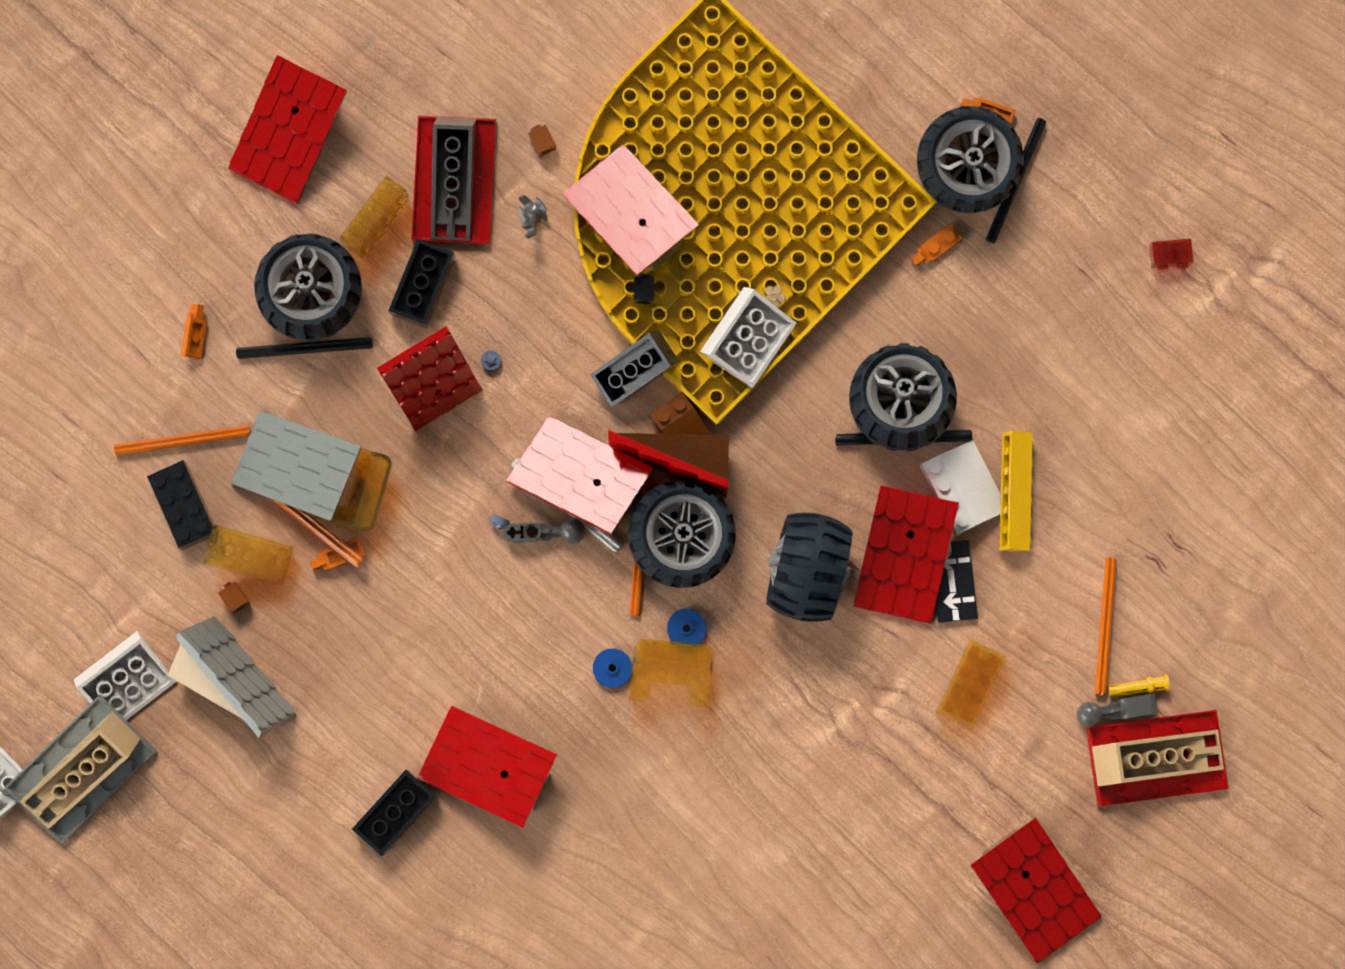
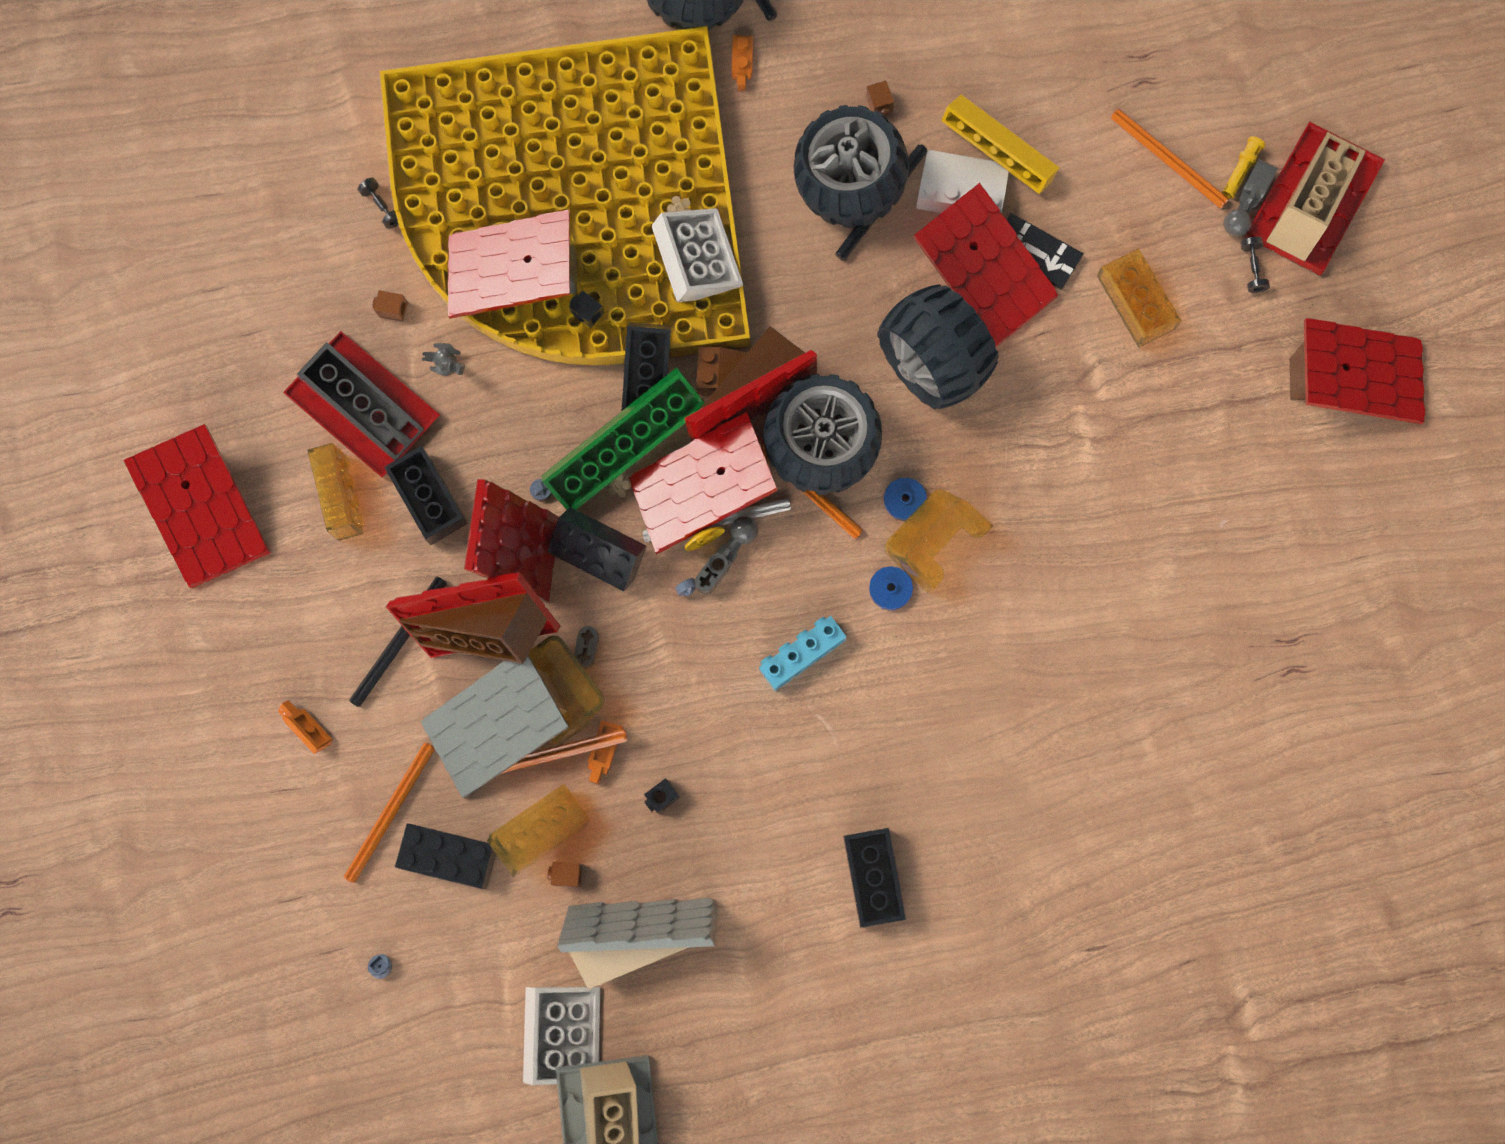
camera: 45 degrees left, 5 degrees down
(74, 519) = (379, 966): none -> sand blue tile
(272, 283) = (326, 613): wheel -> none
(346, 623) = (671, 796): none -> black brick
(360, 405) = (477, 618): none -> reddish brown piece
(405, 488) = (591, 648): none -> dark grey beam
(470, 761) = (879, 771): red piece -> none
(476, 437) = (596, 548): none -> black brick
(515, 641) = (802, 653): none -> medium azure brick
(536, 414) = (619, 486): none -> tan plant
(542, 505) = (703, 538): none -> yellow dish
(568, 394) = (622, 440): none -> green brick
(619, 49) = (368, 188): none -> black wheel
(983, 374) = (880, 98): none -> dark orange brick
(1066, 751) = (1252, 244): none -> black wheel

